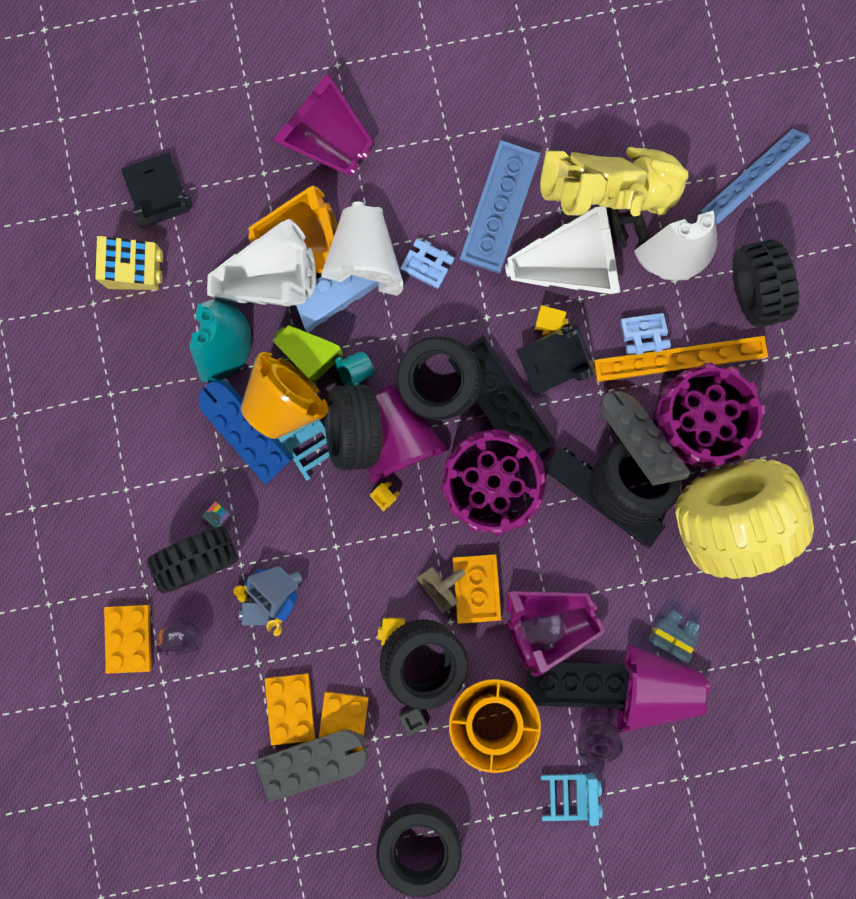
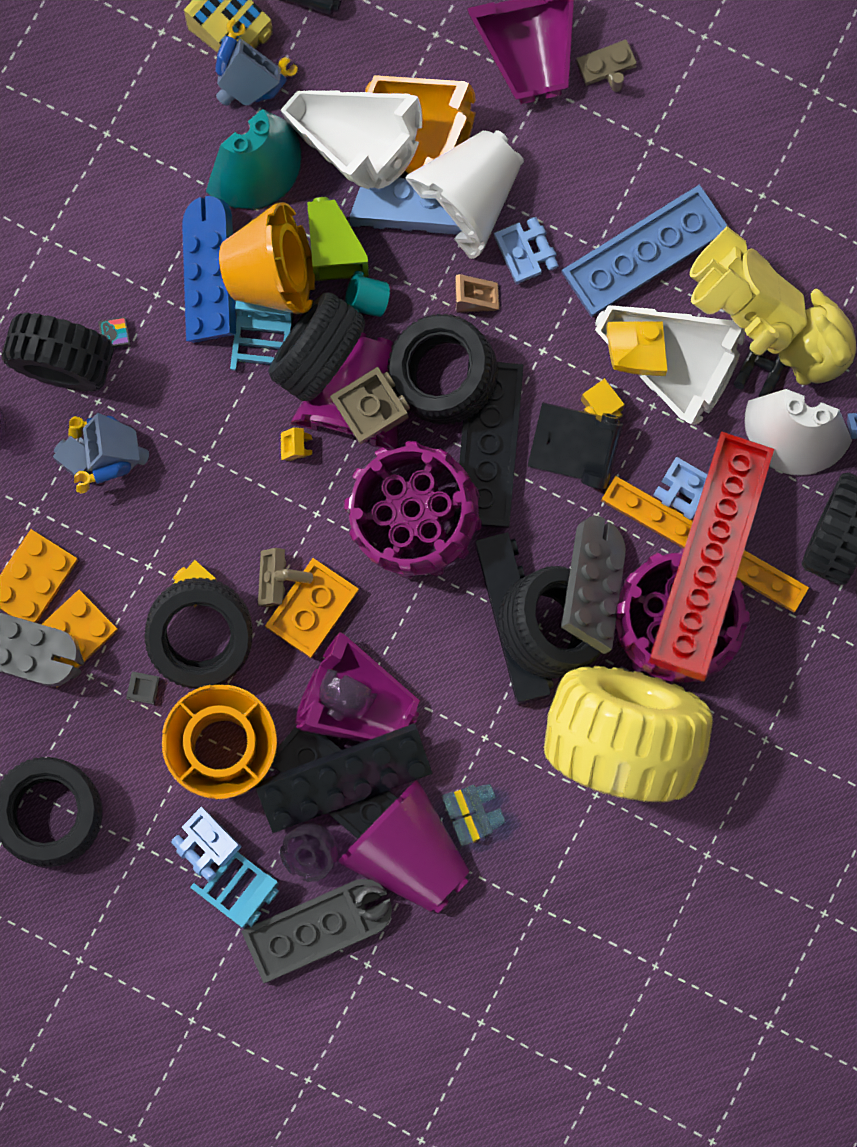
camera: 35 degrees right, 5 degrees down
(166, 288) = (246, 72): none -> sand blue torso
(384, 109) = (607, 64): none -> dark tan plate
(416, 437) = (371, 405): none -> dark tan plate
(419, 315) = (475, 294): none -> light nougat slope
(531, 781) = (211, 837): none -> plate
(547, 270) = (637, 347): none -> yellow plate
(585, 682) = (343, 778): none -> black plate
(640, 782) = (317, 928): none -> dark grey plate
(708, 368) = (711, 557): none -> plate

